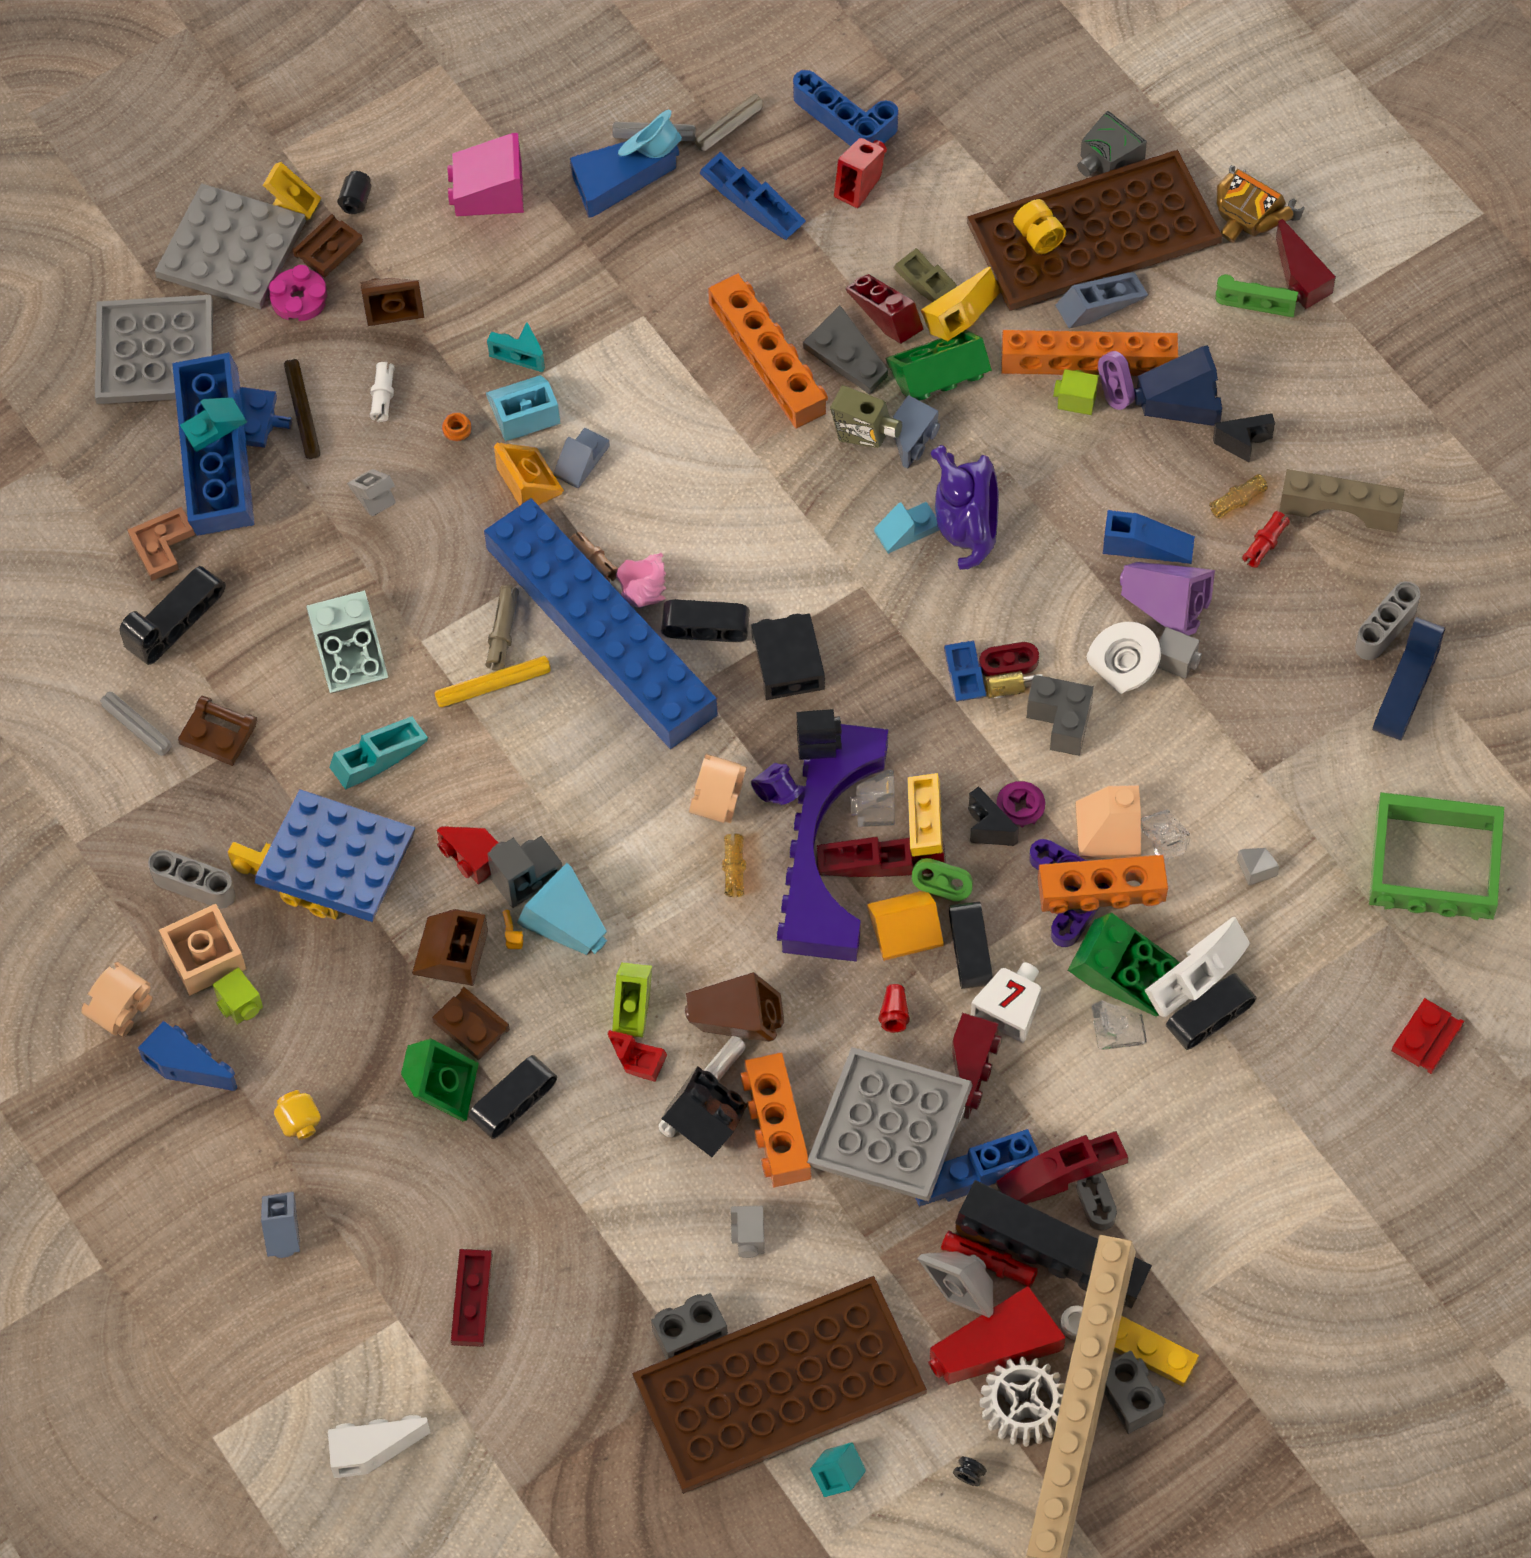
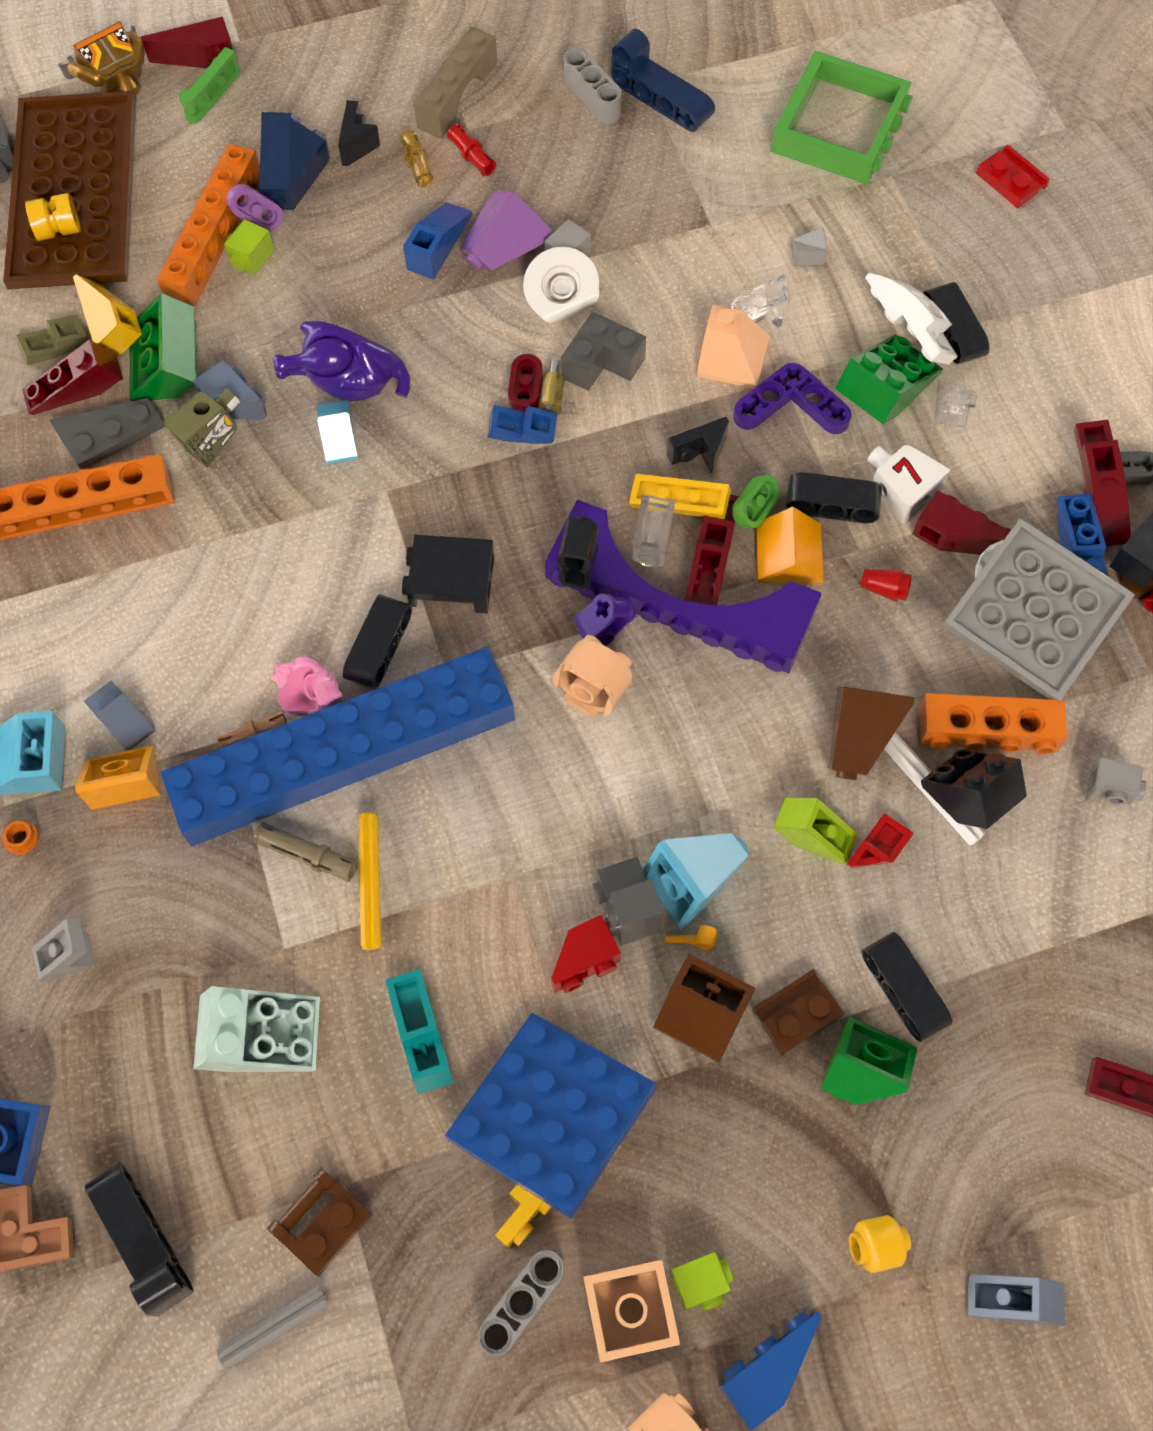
camera: 75 degrees left, 5 degrees up
(734, 865) = (679, 690): clear yellow pin -> none
(1015, 793) = (686, 405): magenta gear -> none
(1099, 298) = (154, 204): sand blue slope -> none
(1115, 872) = (807, 365): orange brick -> none

